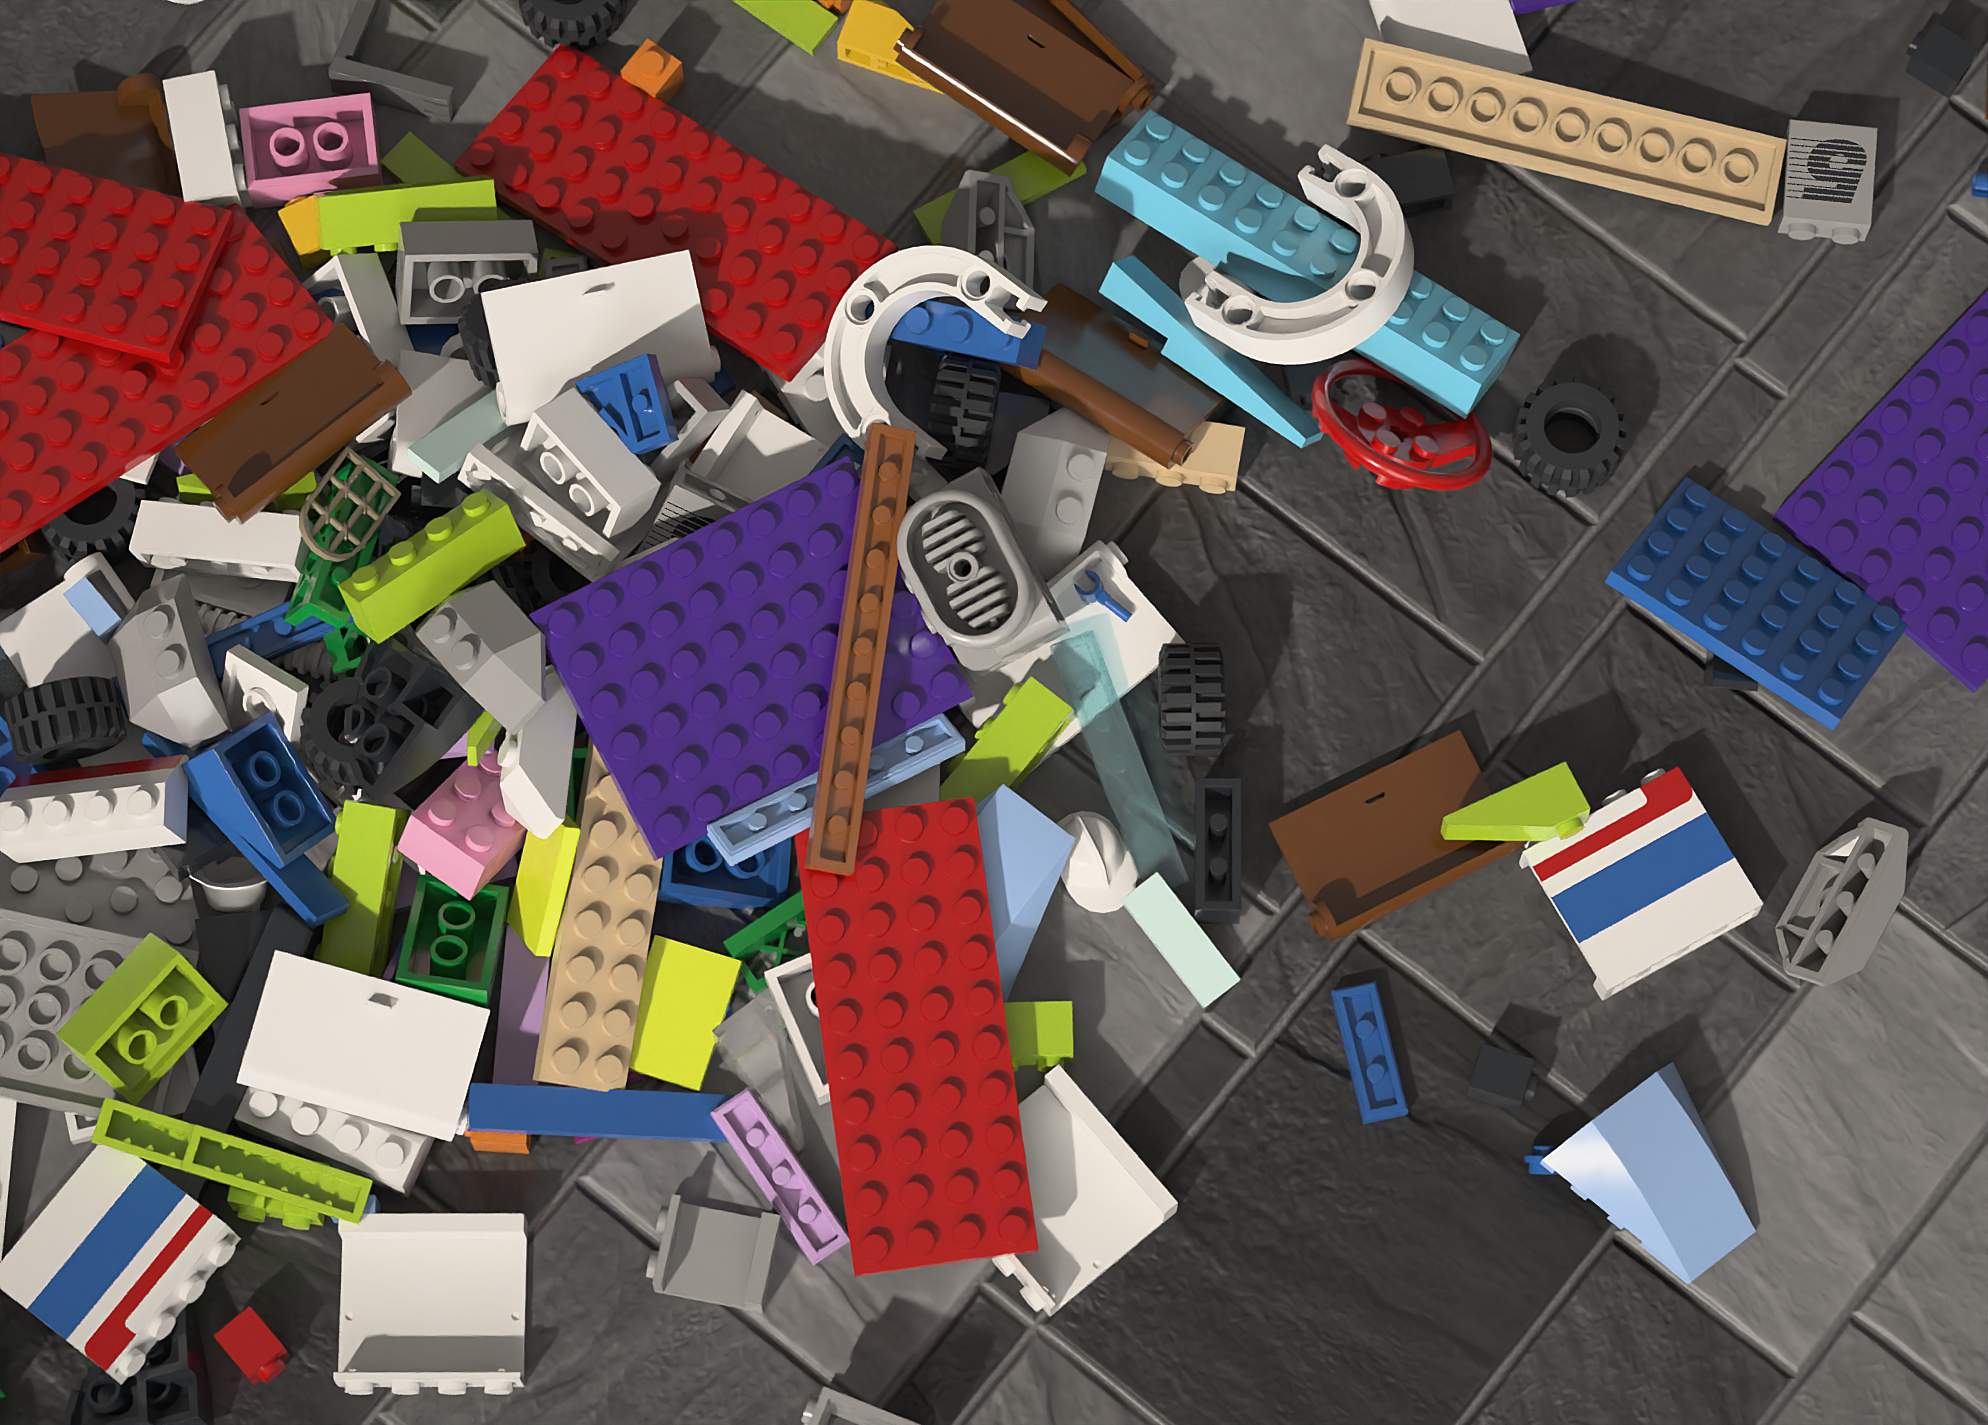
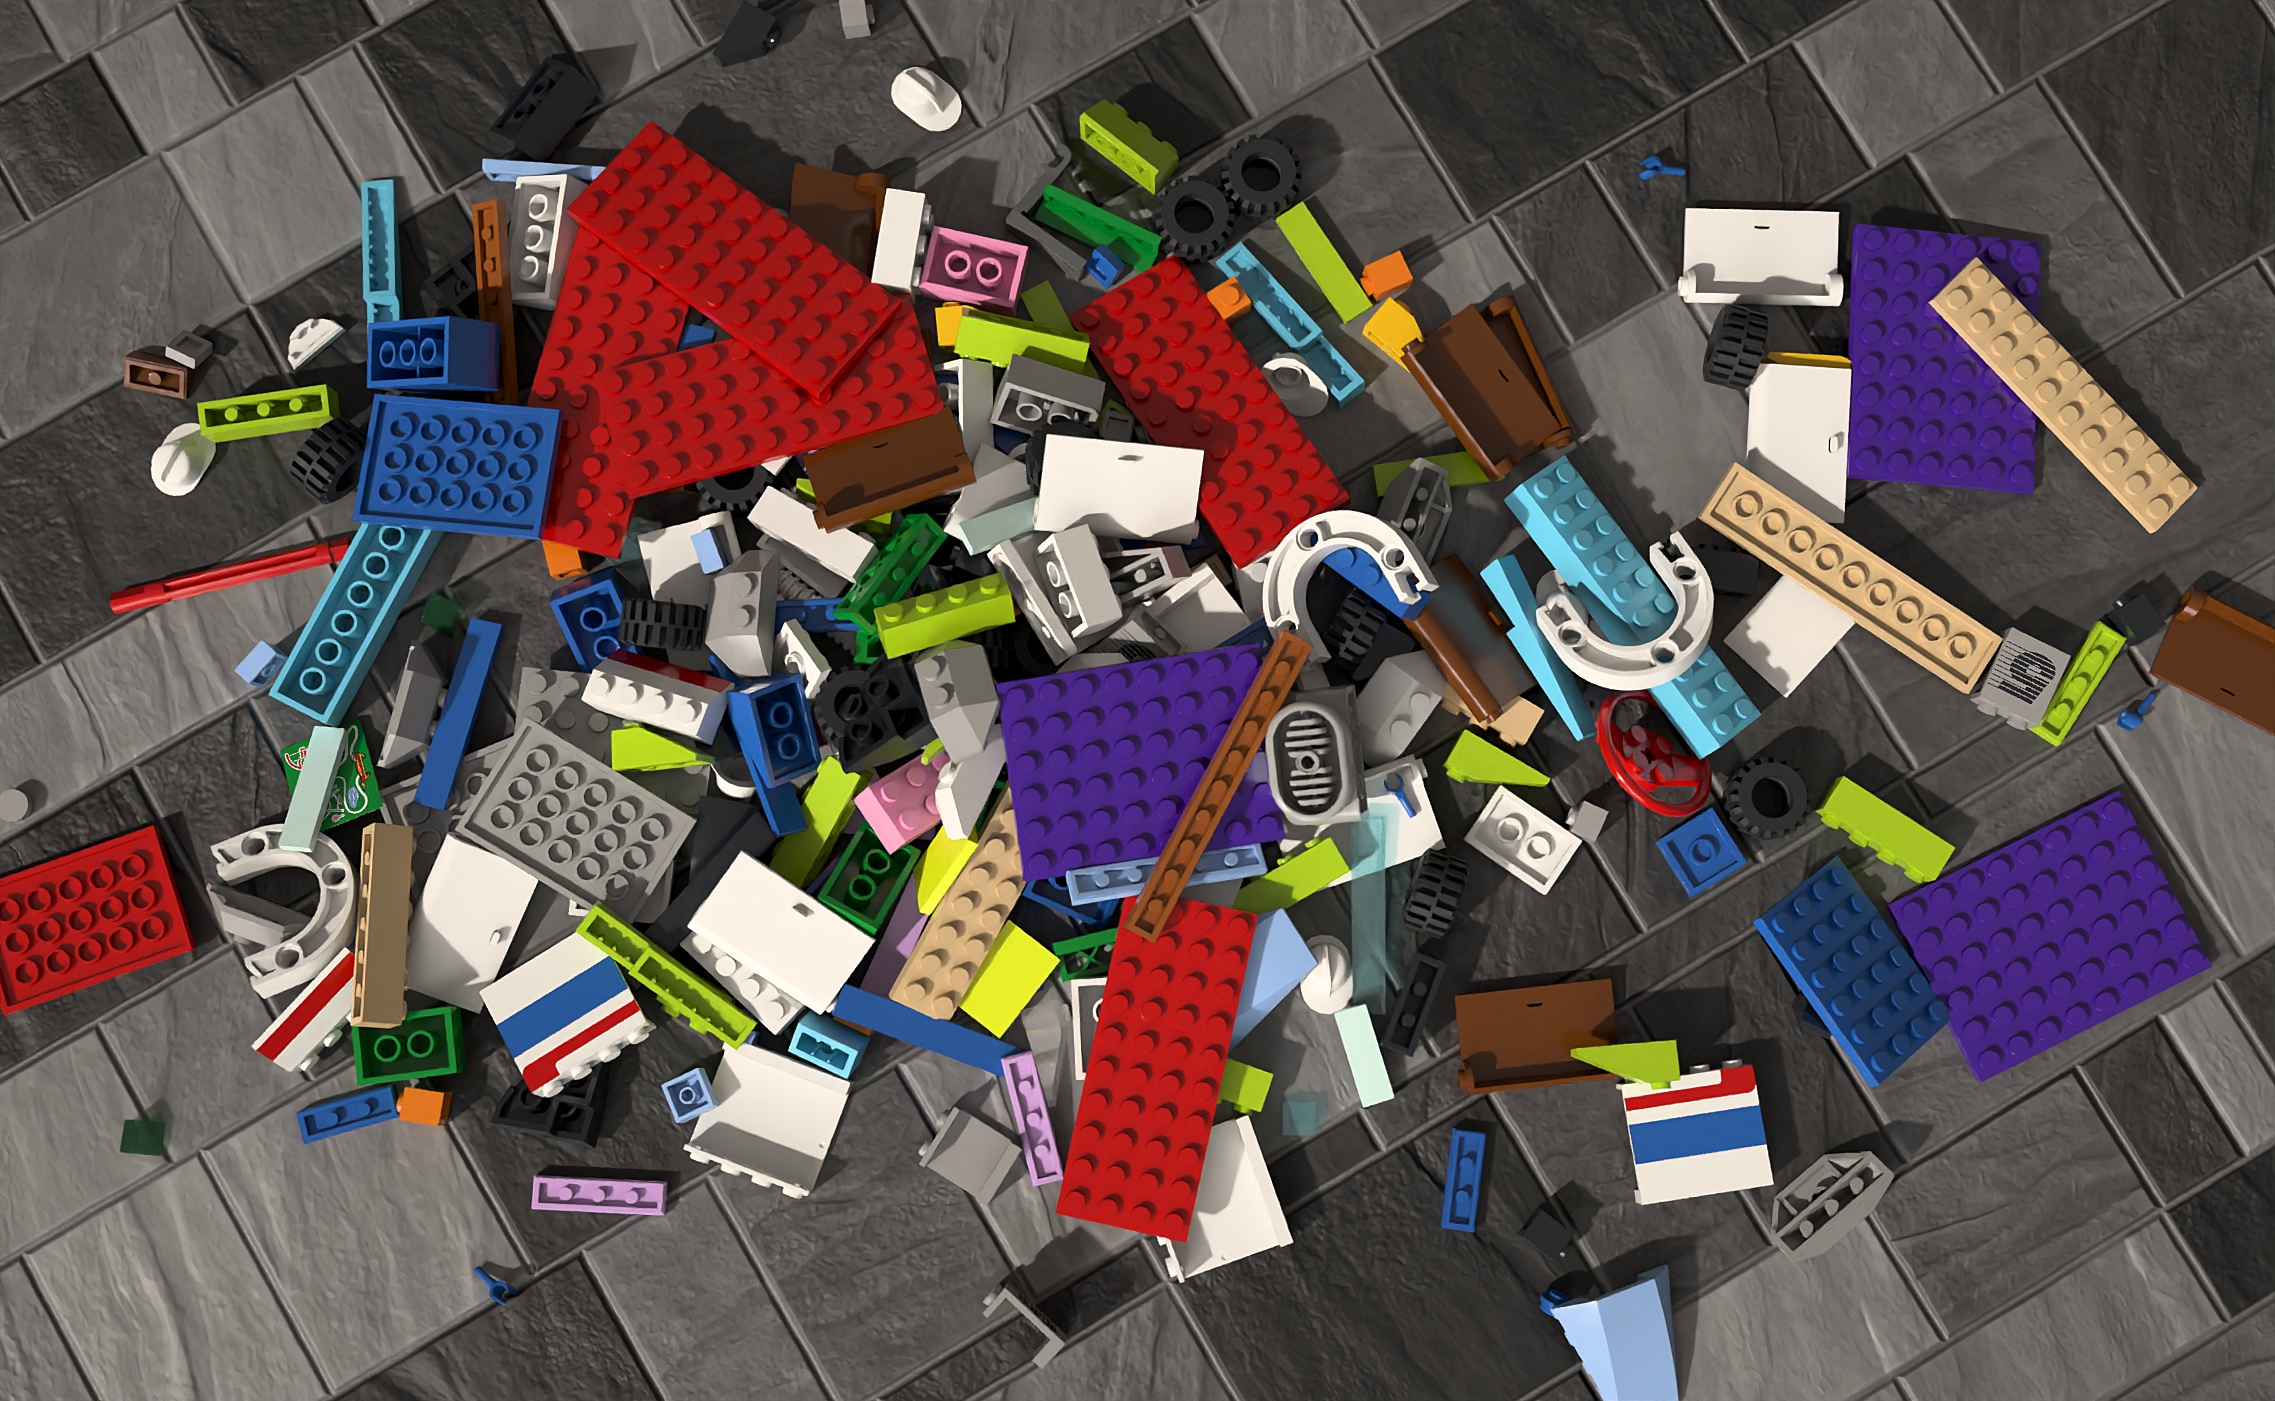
camera: 20 degrees right, 10 degrees up
(101, 883) = (650, 750): none -> lime slope
(142, 1018) = (639, 857): lime slope -> none
(253, 1347) = (639, 1102): red brick -> none
(317, 1314) = (690, 1095): none -> light blue piece
(363, 508) = (894, 565): dark tan window -> none
(452, 46) = (1095, 226): none -> green fence
(477, 88) = (1104, 266): none -> blue plate
(477, 1176) = (829, 1043): none -> medium azure brick
(633, 403) = (1124, 552): blue wing -> none
(750, 80) = (1292, 324): none -> medium azure slope
(779, 143) = (1296, 384): none -> white piece
(1127, 1053) = (1299, 1118): none -> clear light blue tile
(1197, 523) = (1484, 763): none -> lime slope
(1280, 601) = (1522, 840): none -> white plate
(1351, 548) = (1586, 821): none -> light grey plate
(1512, 535) = (1700, 852): none -> blue plate
(1519, 232) = (1787, 634): none -> white sticker
(1732, 424) = (1884, 830): none -> lime brick
(1903, 163) = (2079, 682): none -> lime tile

